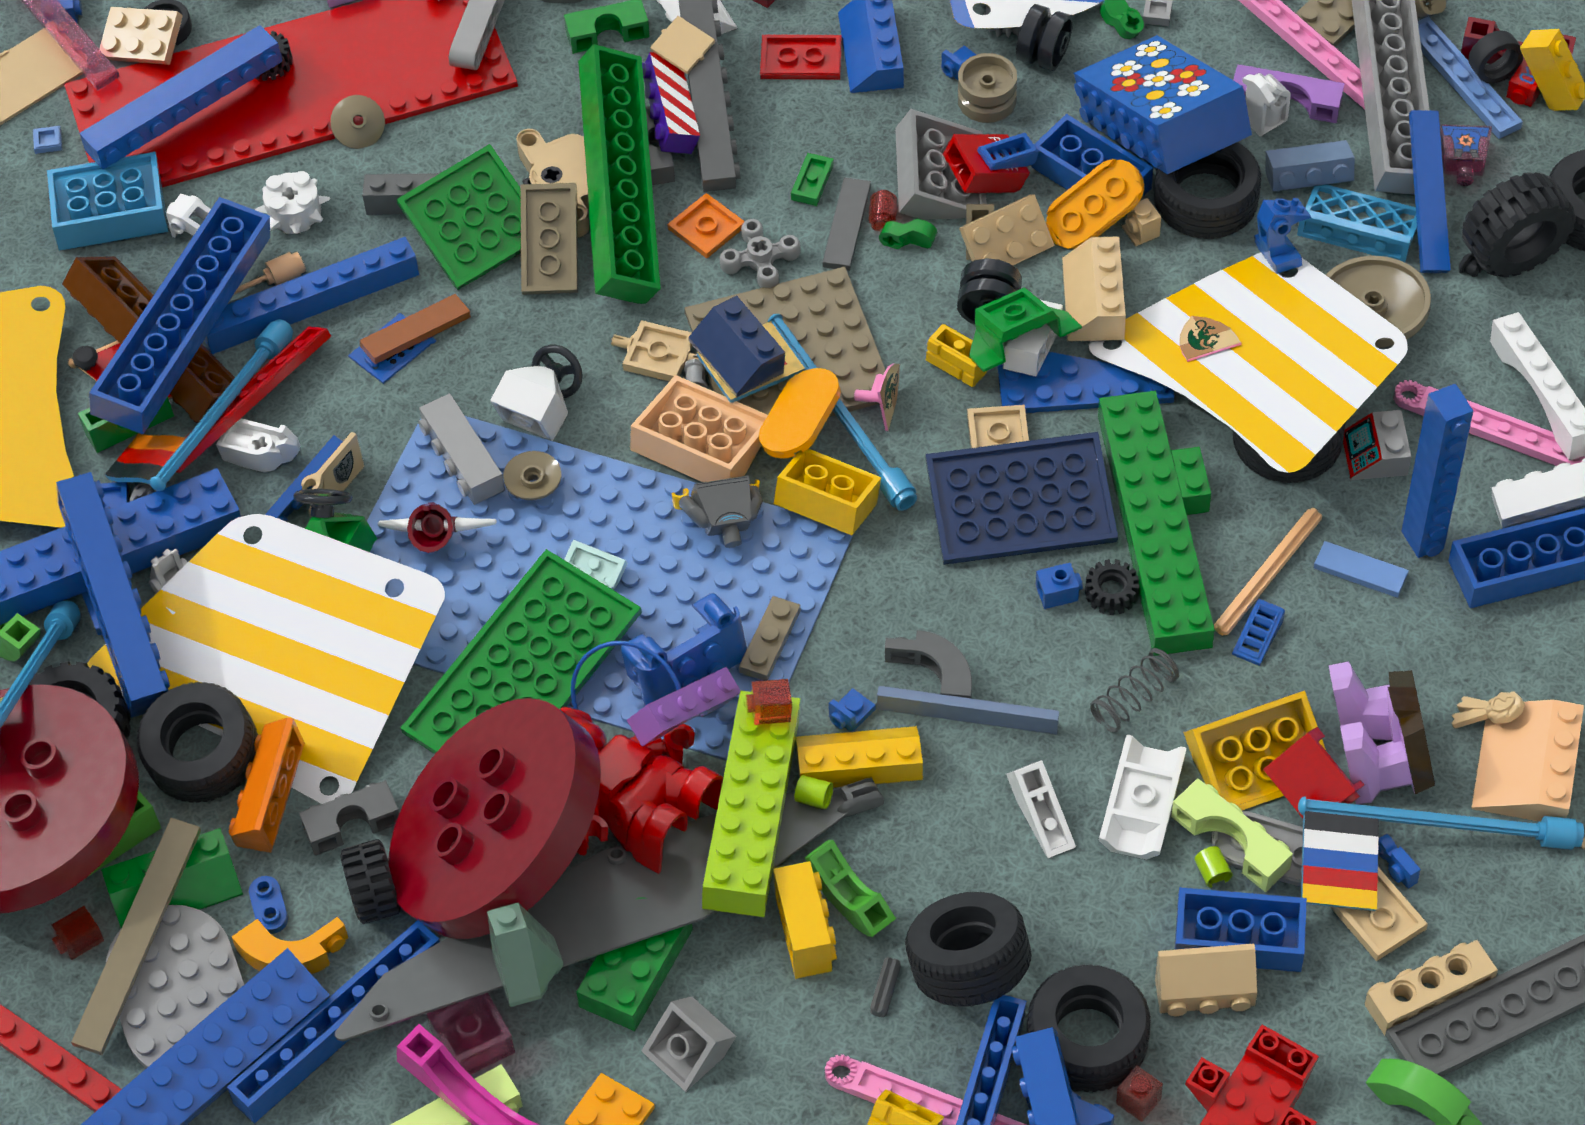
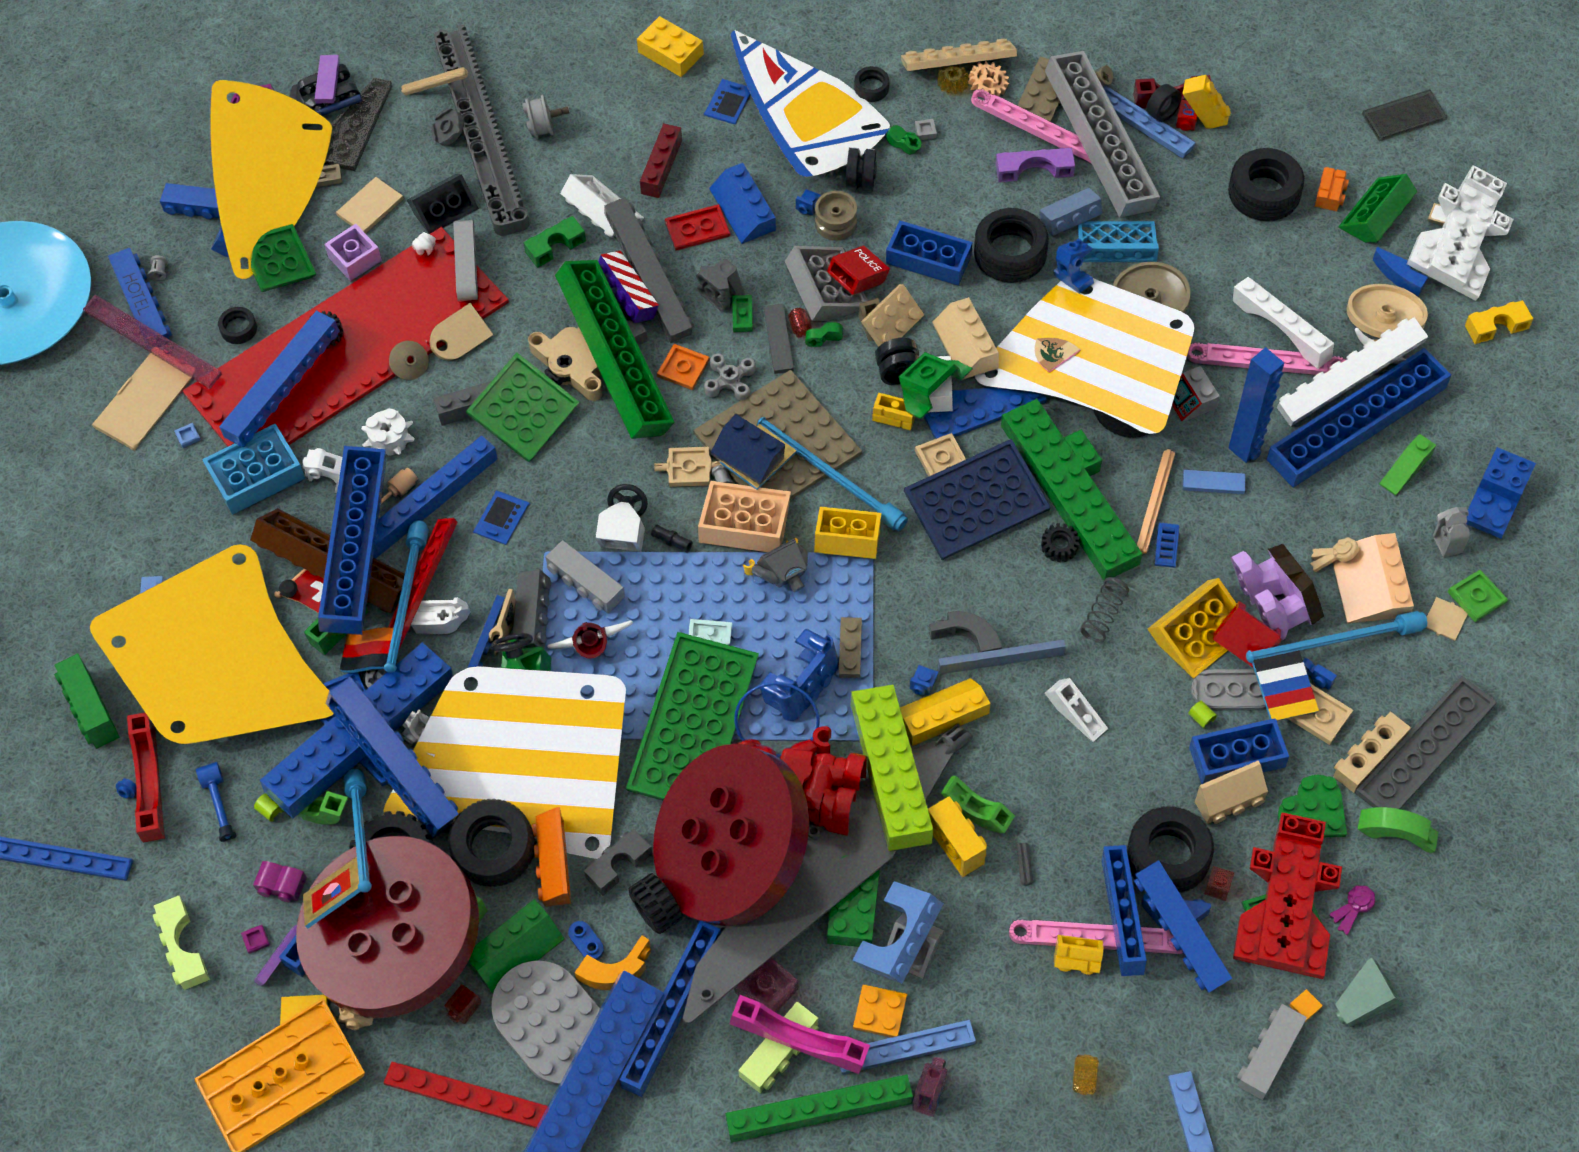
camera: 20 degrees left, 5 degrees up
(136, 937) = (510, 995): dark tan tile -> none
(140, 35) = (225, 339): plate -> none
(378, 469) = (532, 606): none -> dark grey brick
(415, 328) = (513, 499): tile -> none
(437, 106) = (460, 333): none -> tan tile
(522, 953) = (788, 924): sand green slope -> none
(528, 467) = (639, 574): dark tan dish -> none
(549, 238) = (582, 408): dark tan plate -> none
(597, 434) = (671, 538): none -> black pin
(653, 1048) = (896, 959): none -> medium blue arch
(682, 44) = (622, 243): tan piece -> none
(683, 705) = (822, 715): medium lavender arch -> none
(770, 701) = (879, 694): clear red brick -> none
(795, 132) = (719, 283): none -> dark grey piece
(799, 413) = (808, 483): light orange tile -> none
(813, 792) = (926, 746): lime beam -> none
(883, 392) = (851, 454): shield -> none
(968, 949) = (1078, 843): black tyre -> none
(1019, 143) = (877, 249): blue slope -> none
(1058, 585) = (1025, 552): blue brick -> none
(1095, 203) = (943, 278): light orange tile -> none
(1141, 799) = (1139, 683): white piece -> none
(1142, 223) = (977, 282): tan brick -> none
(1163, 104) = (964, 196): blue brick -> none
(1204, 810) = (1184, 678): yellowish green arch -> none
(1266, 102) = (1026, 176): white piece -> none
(1329, 1028) = (1318, 799): none -> green plate
(1429, 191) = (1158, 209): blue tile -> none
(1464, 151) = (1166, 173): clear pink torso -> none
(1470, 265) = (1200, 251): black piece -> none
(1518, 224) = (1227, 216): black tyre -> none

